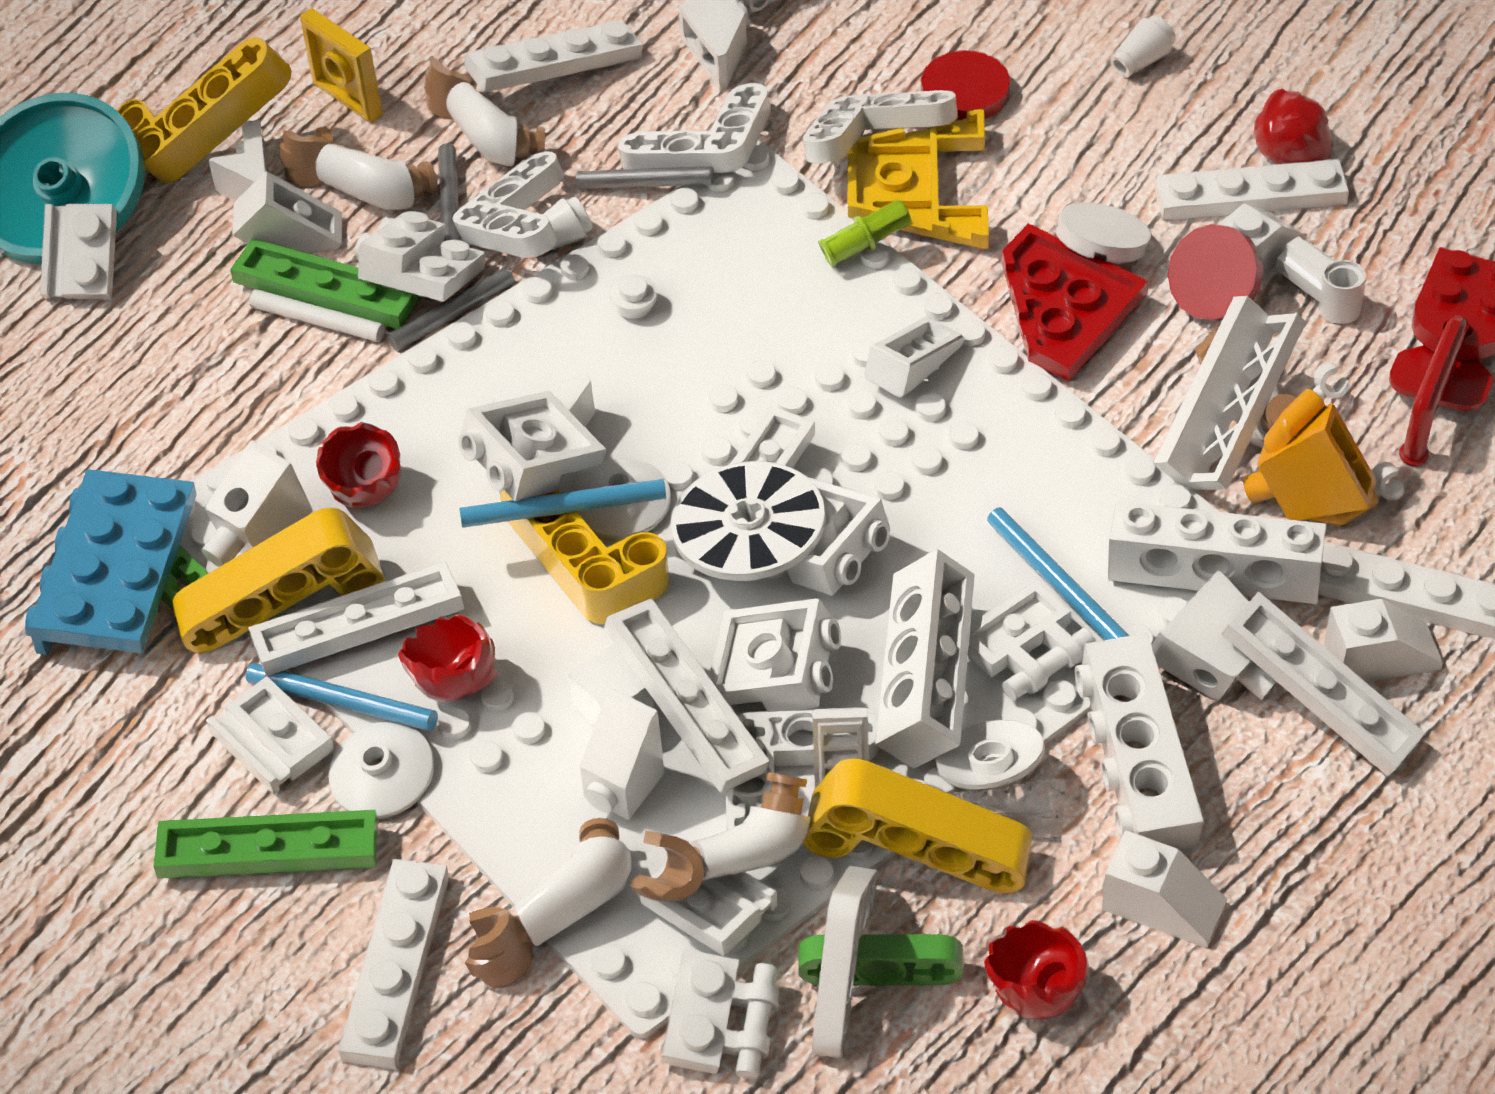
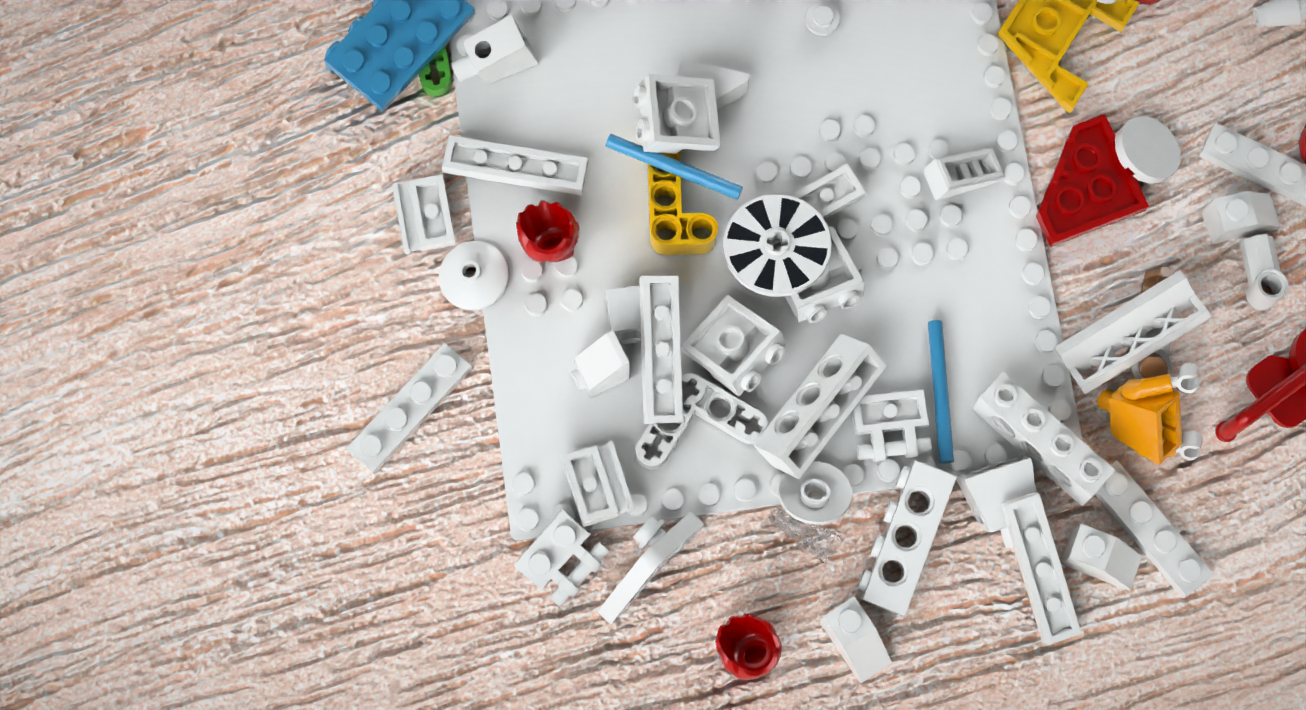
camera: 25 degrees right, 25 degrees up
(266, 844) = (381, 288): bright green plate -> none
(274, 576) = (485, 111): yellow beam -> none
(347, 698) = (480, 217): dark azure bar -> none
(359, 464) = (576, 56): red hair -> none
(577, 888) = (535, 432): piece -> none
(627, 519) = (741, 168): white dish -> none
(761, 840) = (644, 472): piece -> none
(812, 917) = (650, 532): none -> white plate
(835, 748) = (725, 445): white slope -> none
(865, 232) = (994, 61): lime axle -> none
(892, 959) = (676, 584): bright green beam -> none
(917, 822) = (725, 498): yellow beam -> none
(1212, 269) = (1193, 229): tile -> none

